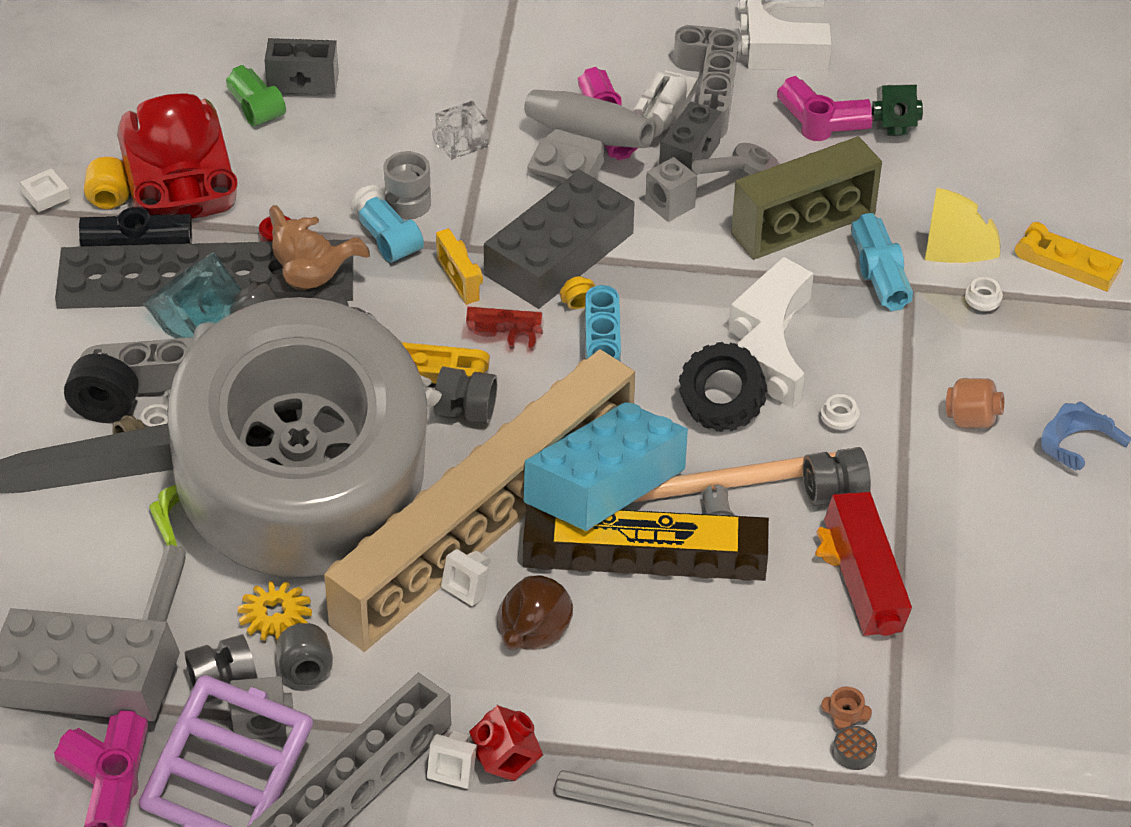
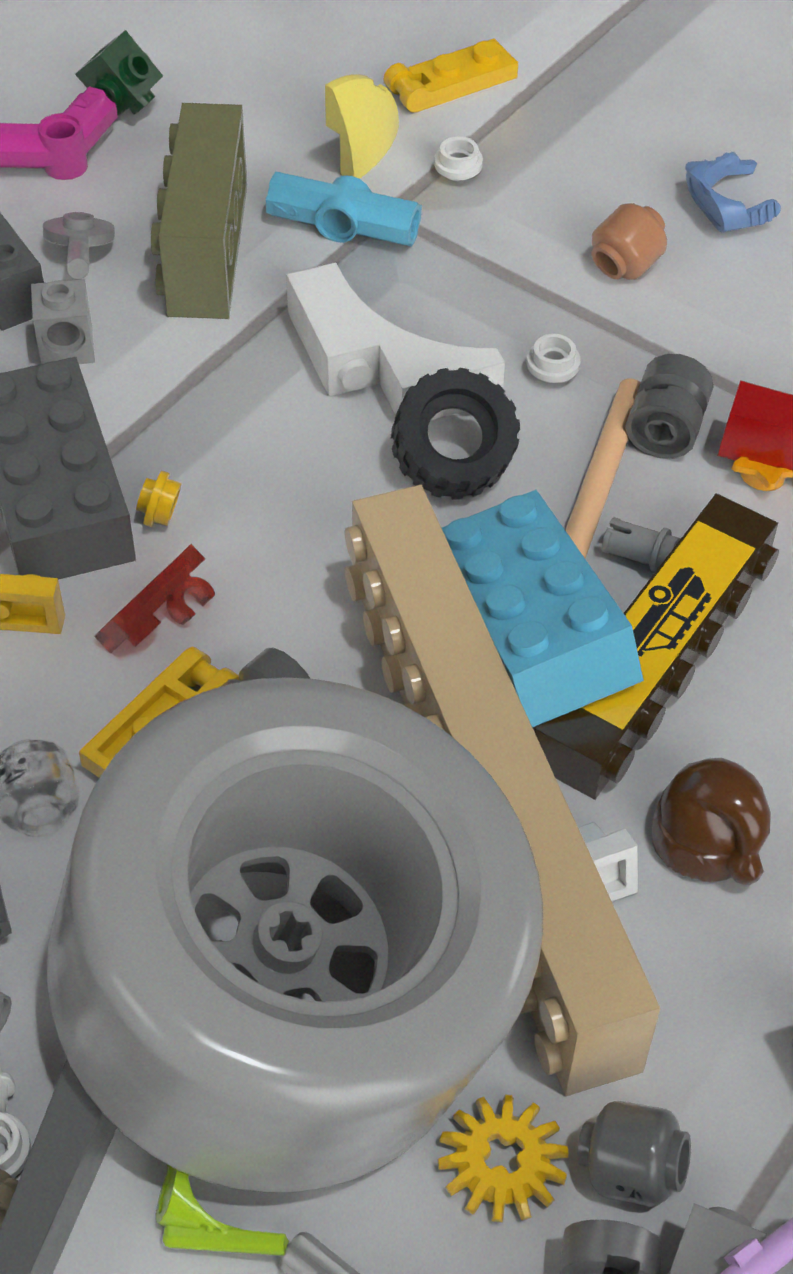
camera: 60 degrees left, 5 degrees up
(602, 321) = (262, 511): medium azure beam -> none

